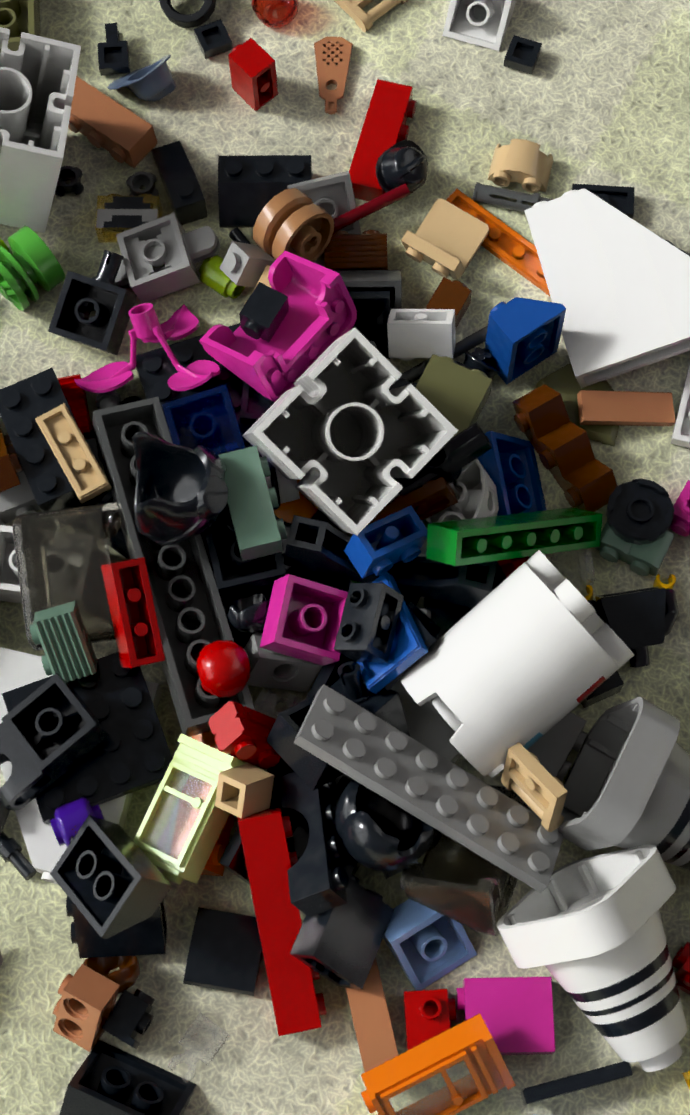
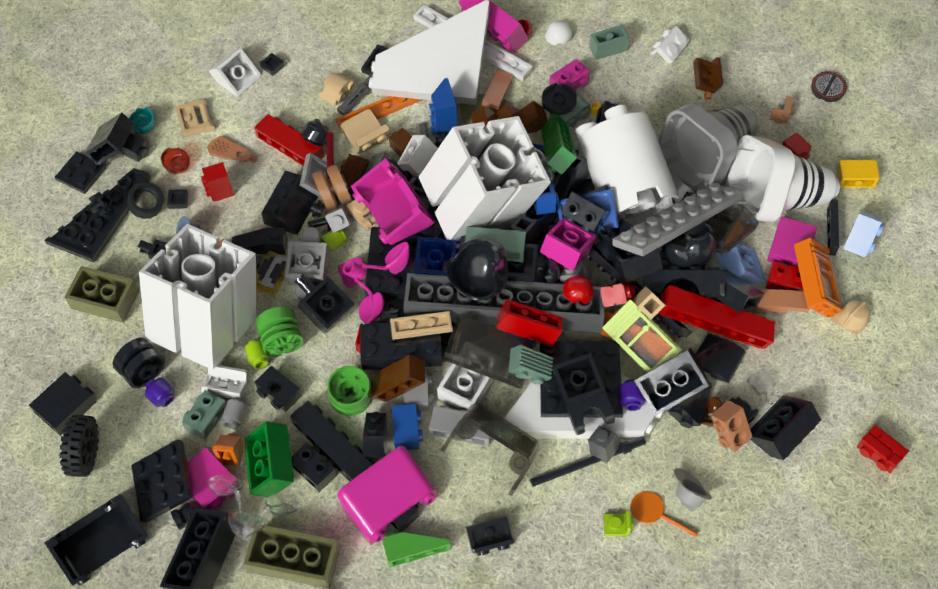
camera: 70 degrees left, 10 degrees down
(263, 312) = (381, 208): black brick -> none
(535, 786) = (692, 177): tan plate -> none

